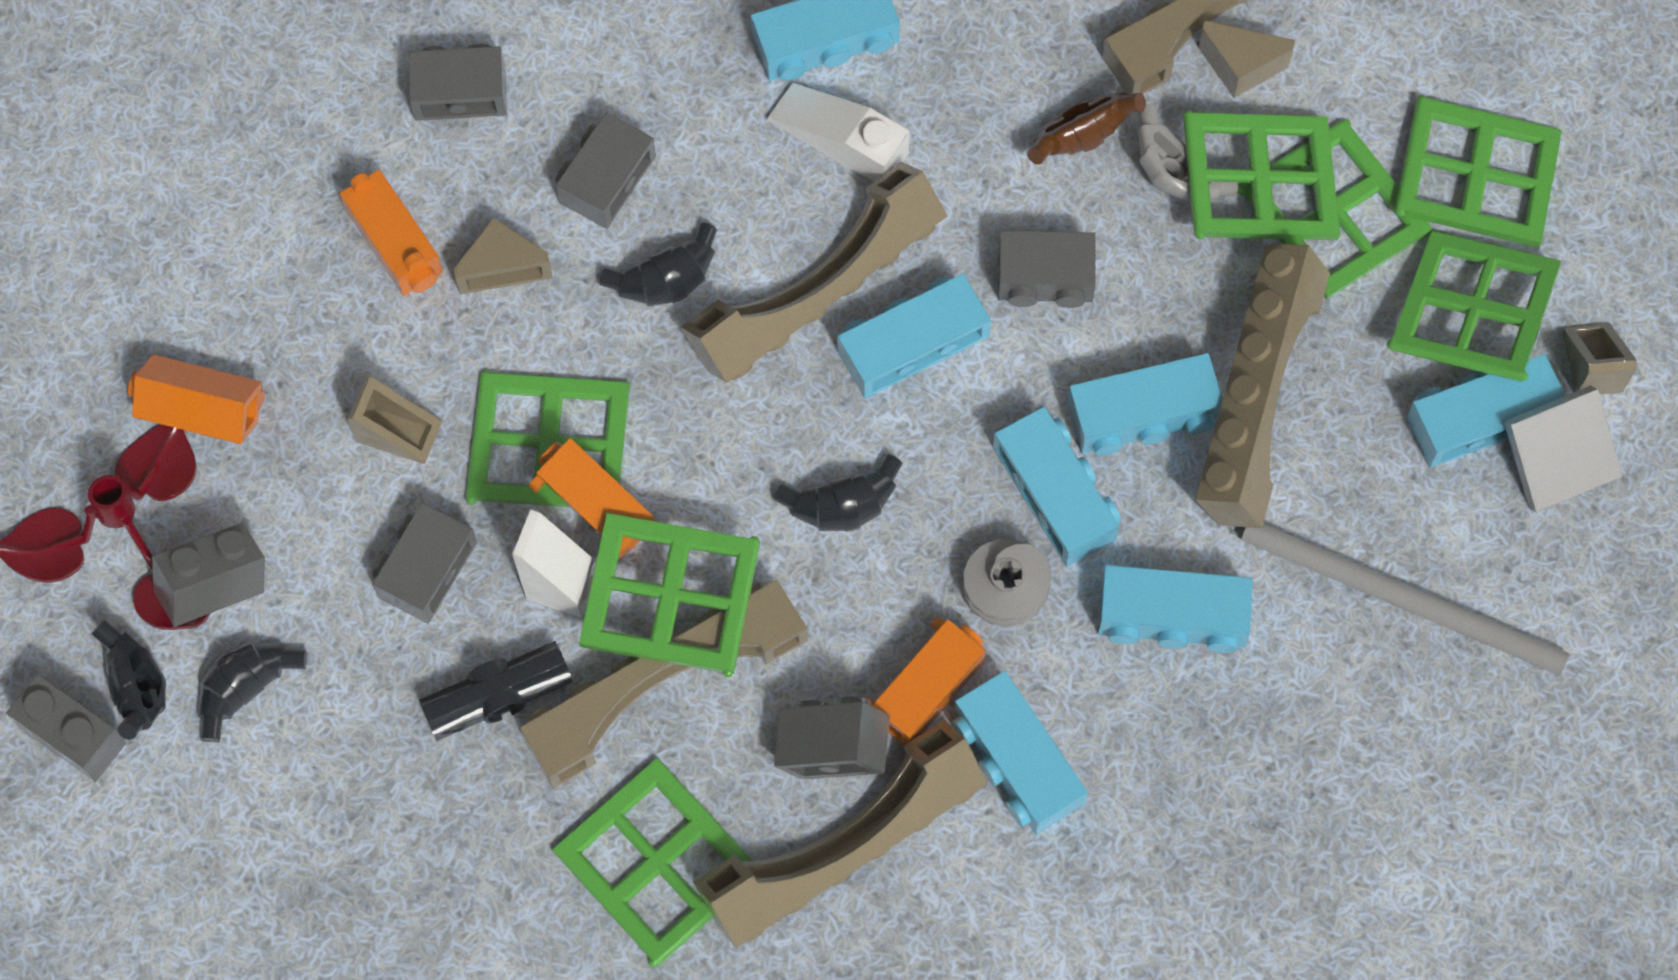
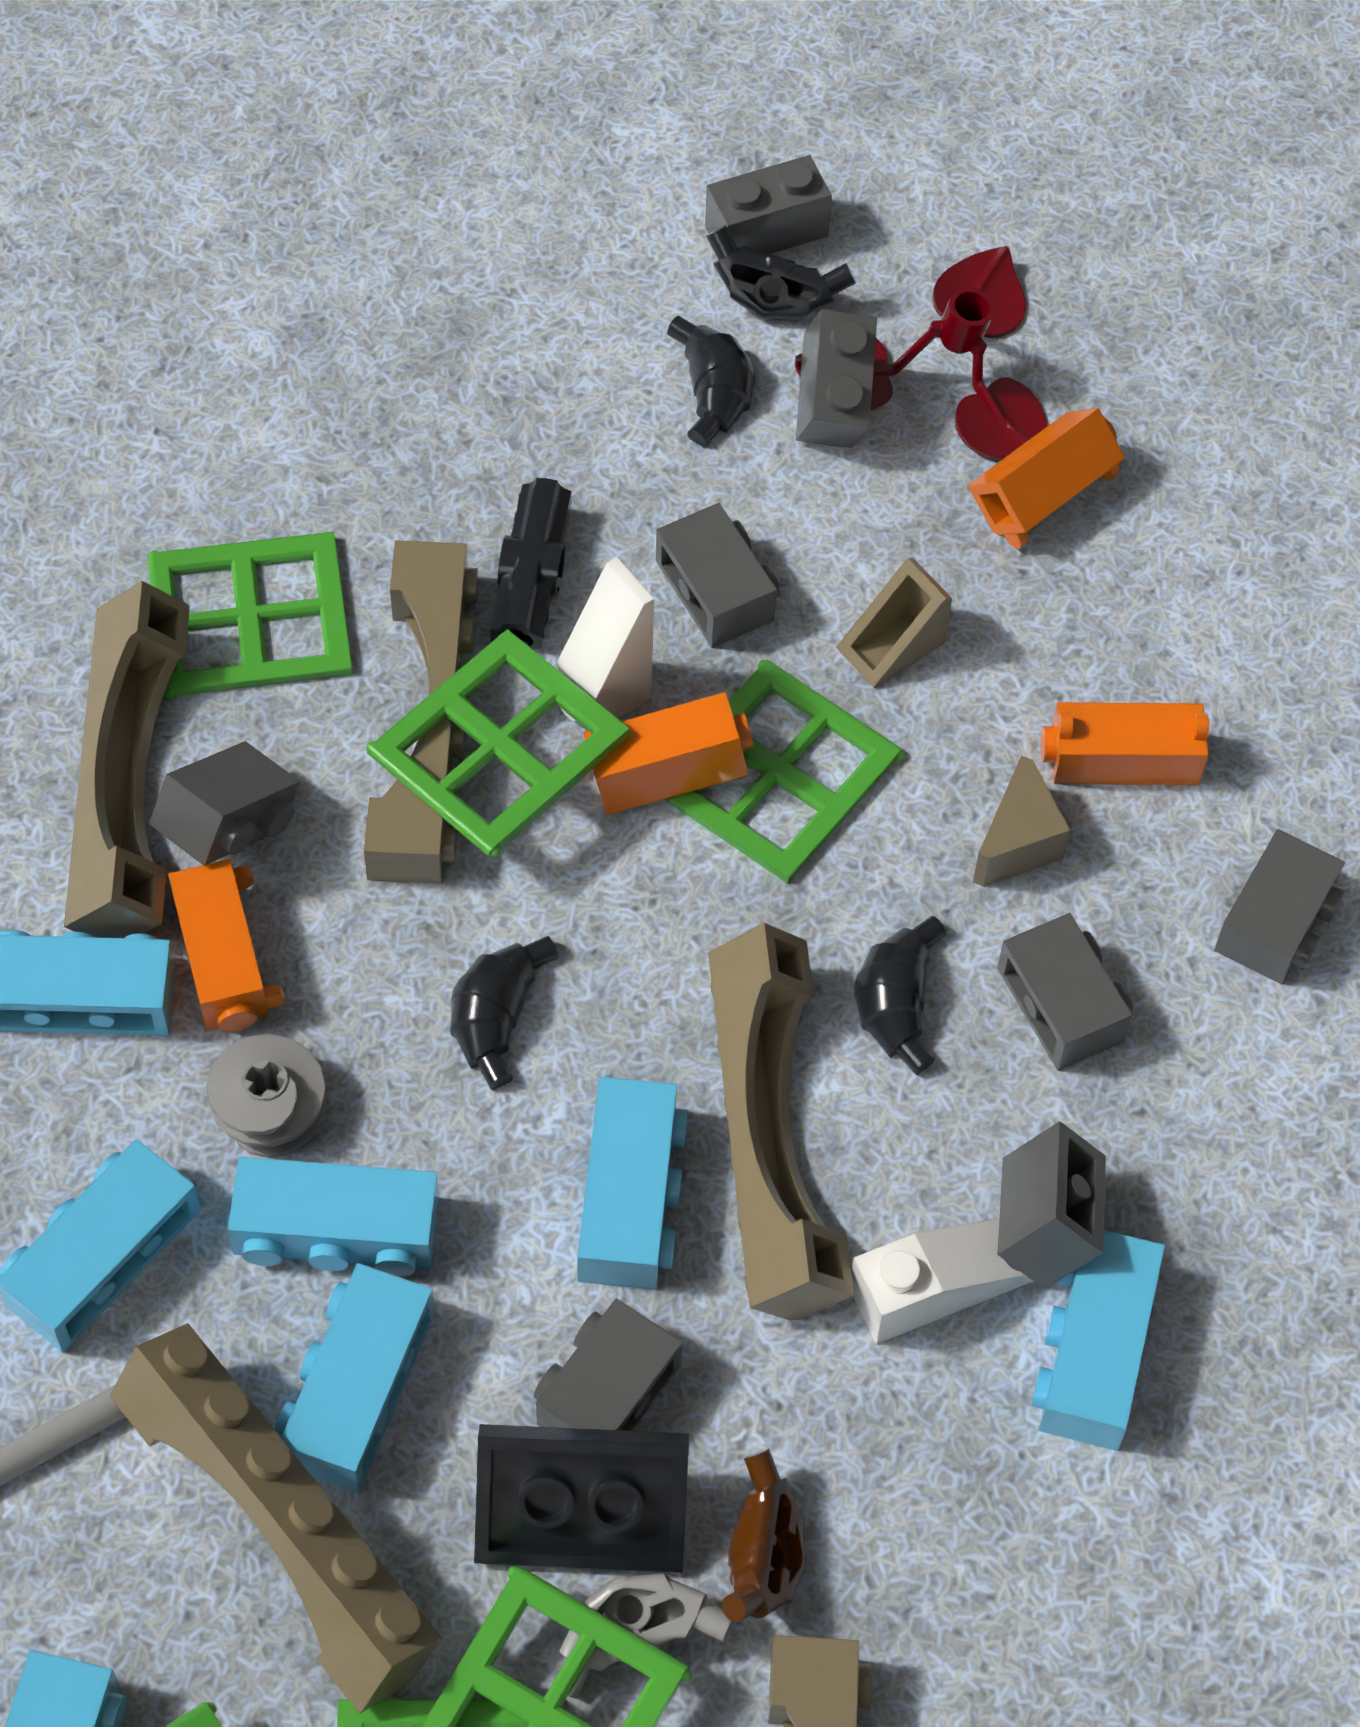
camera: 120 degrees right, 10 degrees down
(769, 85) = (1052, 1205): none -> dark grey brick
(1129, 229) = (581, 1498): none -> black plate

